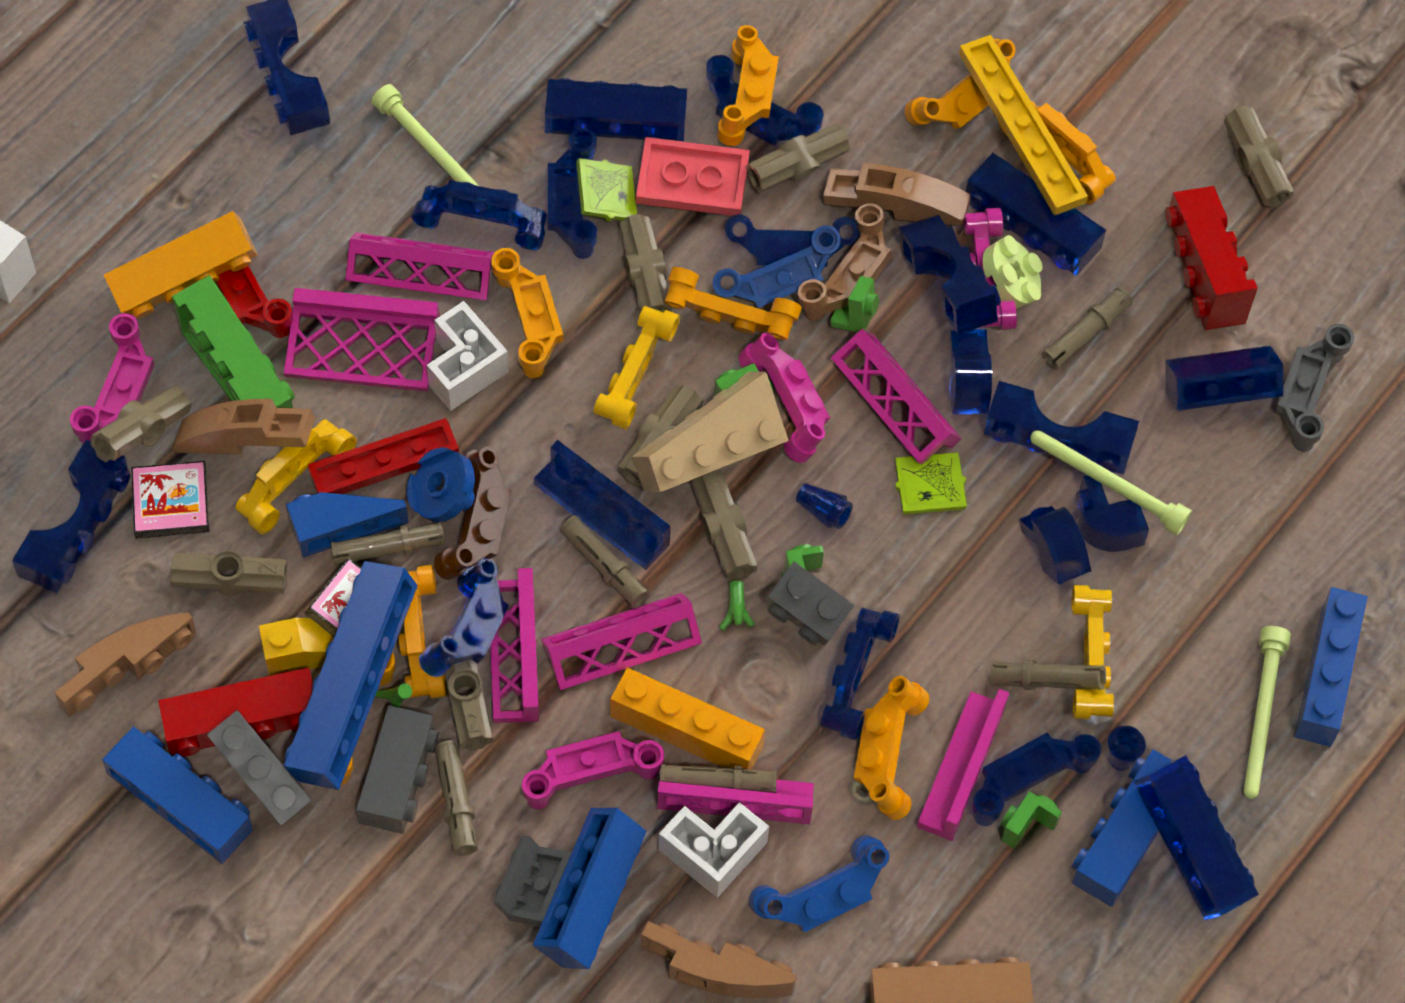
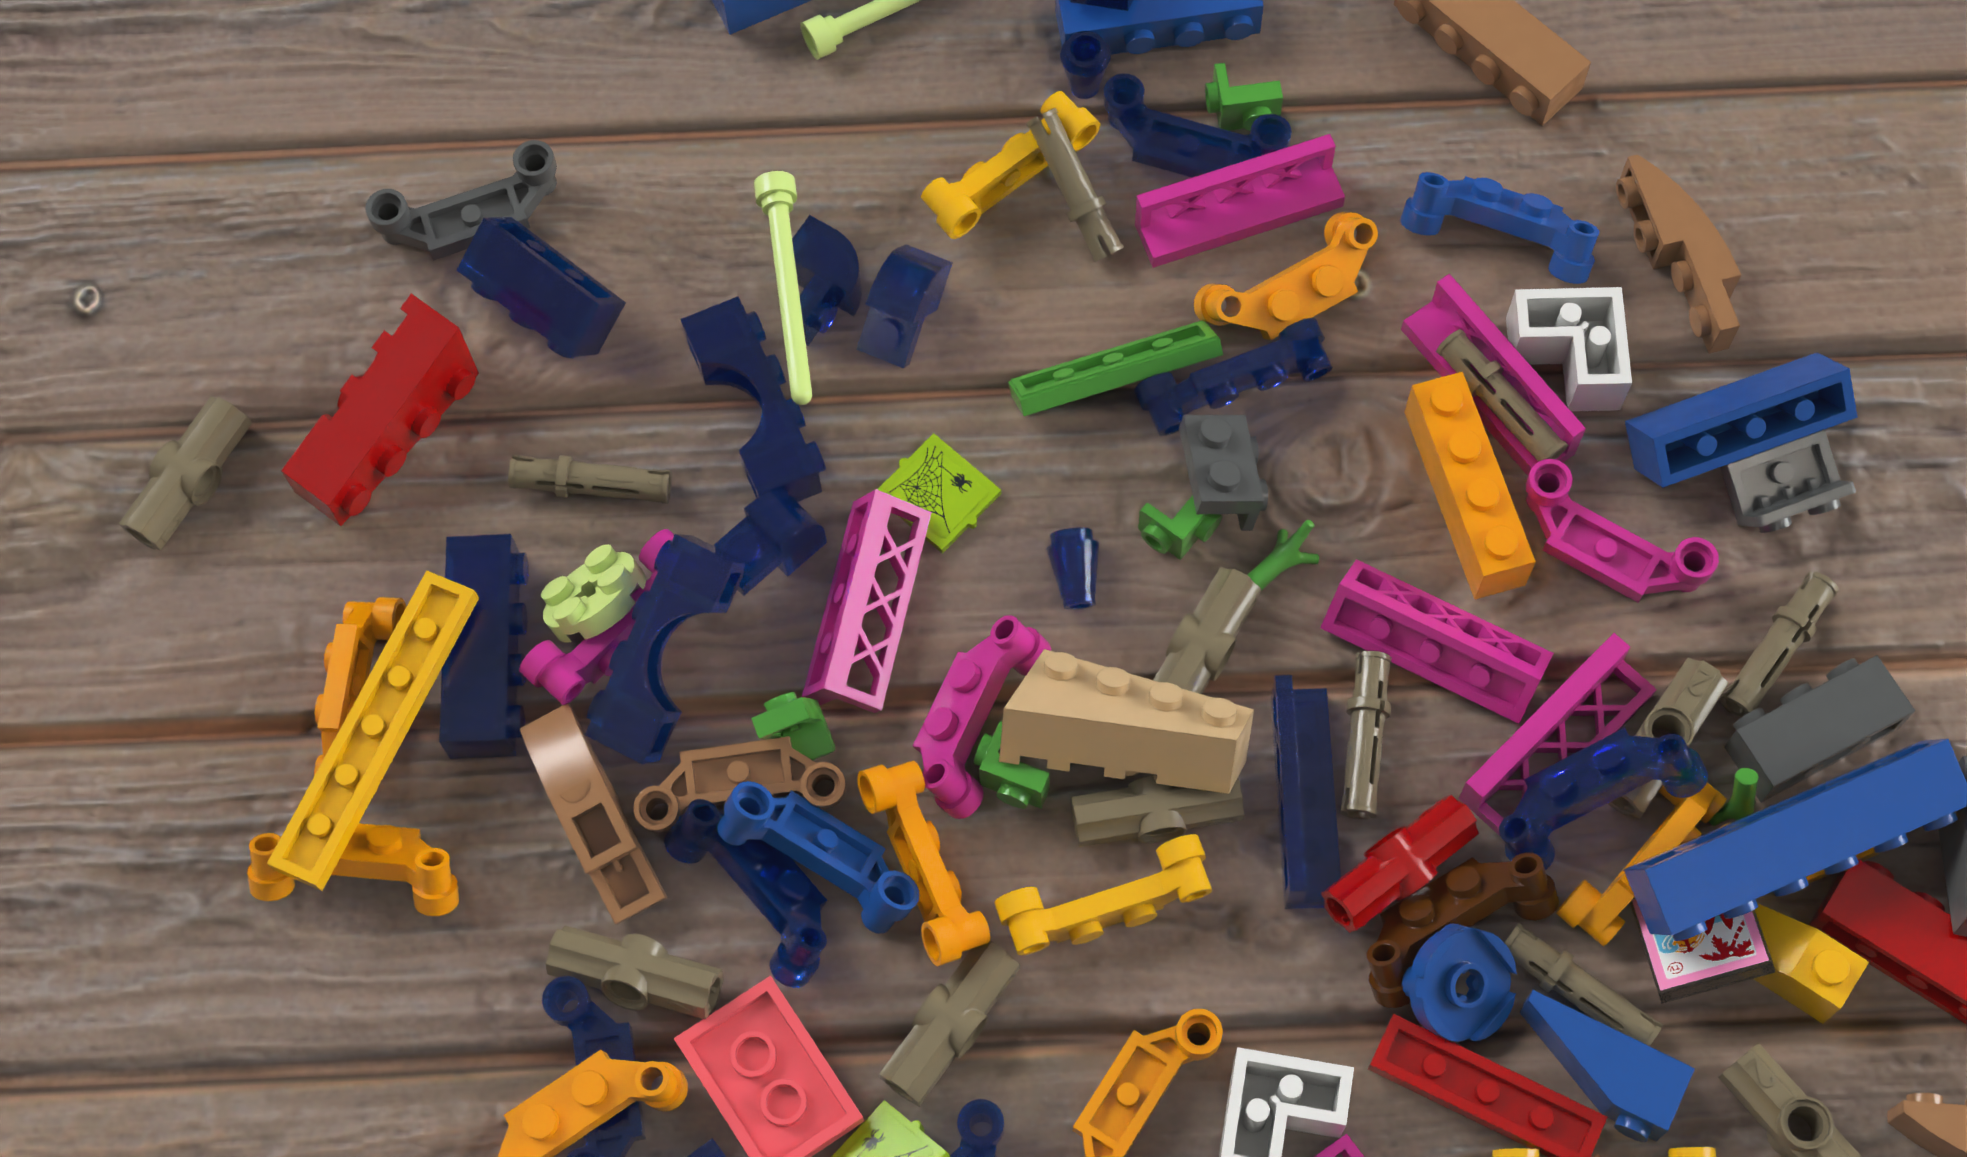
camera: 125 degrees left, 5 degrees up
(524, 512) = (1400, 863): none -> red piece
(920, 613) = (1114, 367): none -> bright green tile

